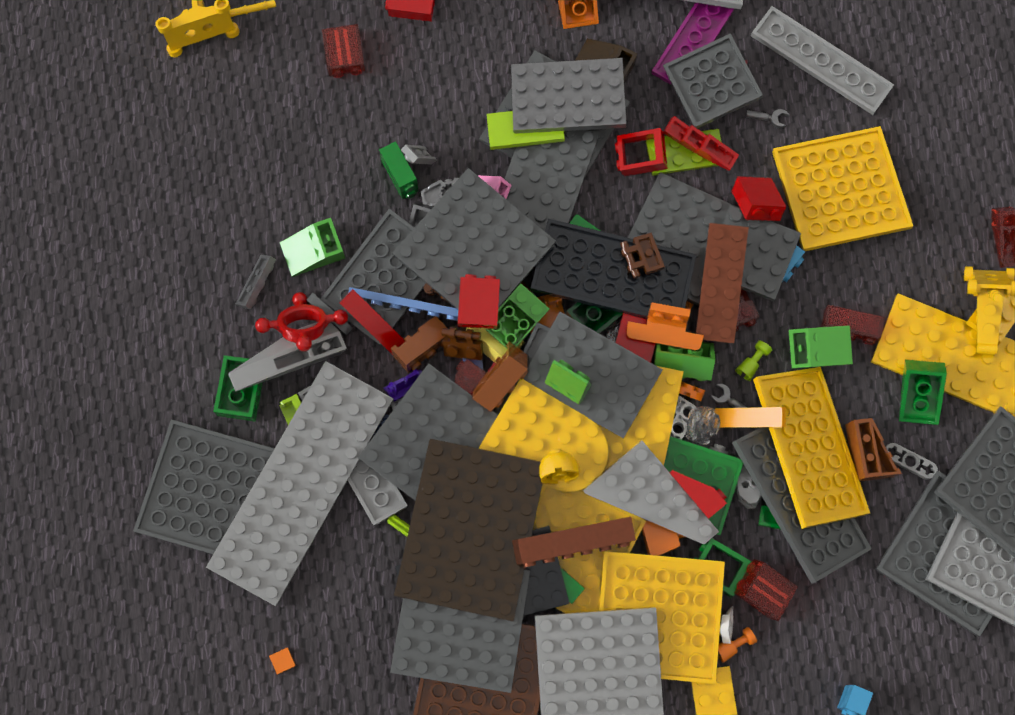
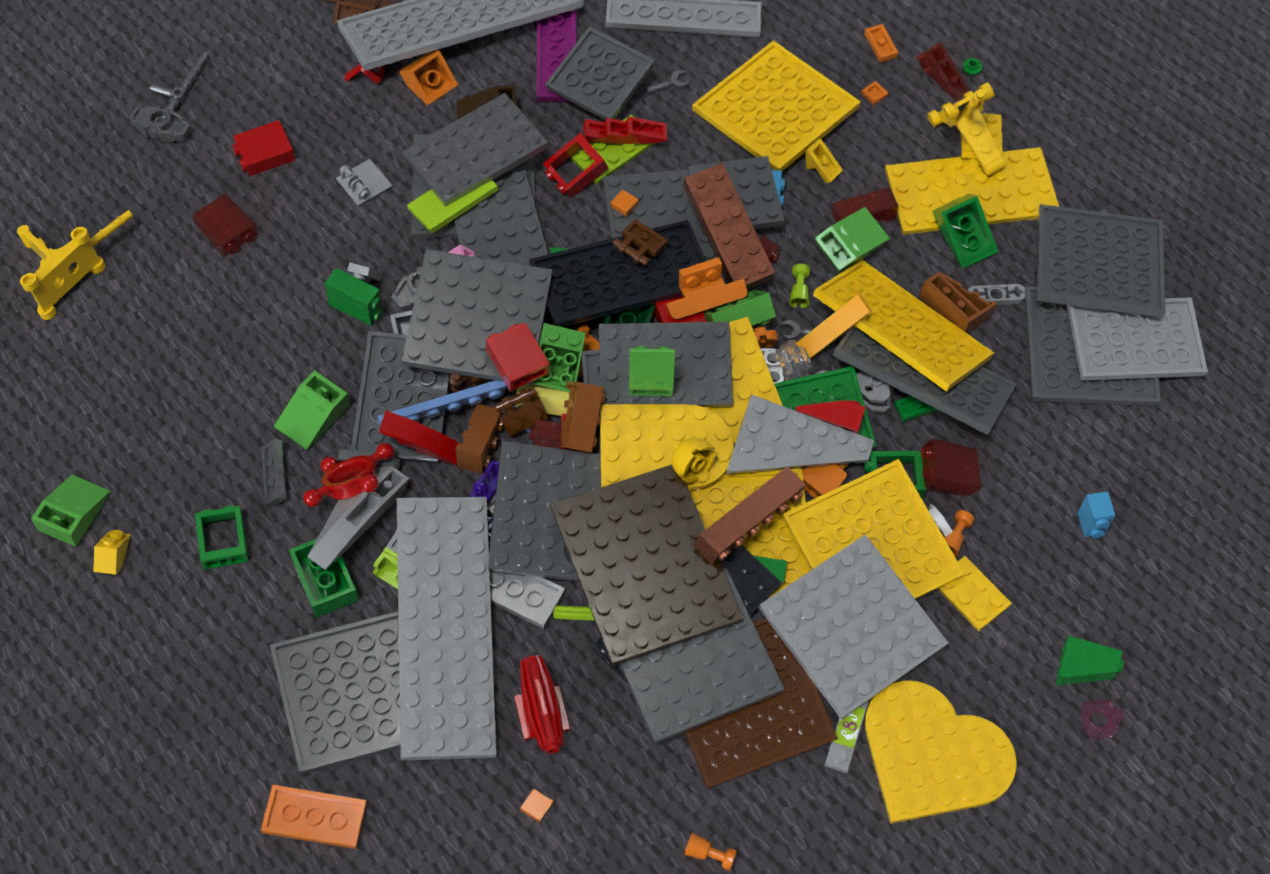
camera: 35 degrees left, 15 degrees down
(97, 225) = (70, 509): none -> bright green slope
(105, 277) = (110, 552): none -> yellow slope
(124, 570) = (314, 816): none -> orange plate
(193, 334) = (224, 556): none -> green window
(329, 592) = (541, 706): none -> red plate
(471, 70) = (363, 181): none -> light grey hinge
(658, 208) = (624, 203): none -> orange tile
(758, 198) = (710, 147): red brick -> none
(846, 261) = (823, 161): none -> yellow slope
(934, 221) = (874, 93): none -> orange tile
(971, 178) = (881, 43): none -> orange plate

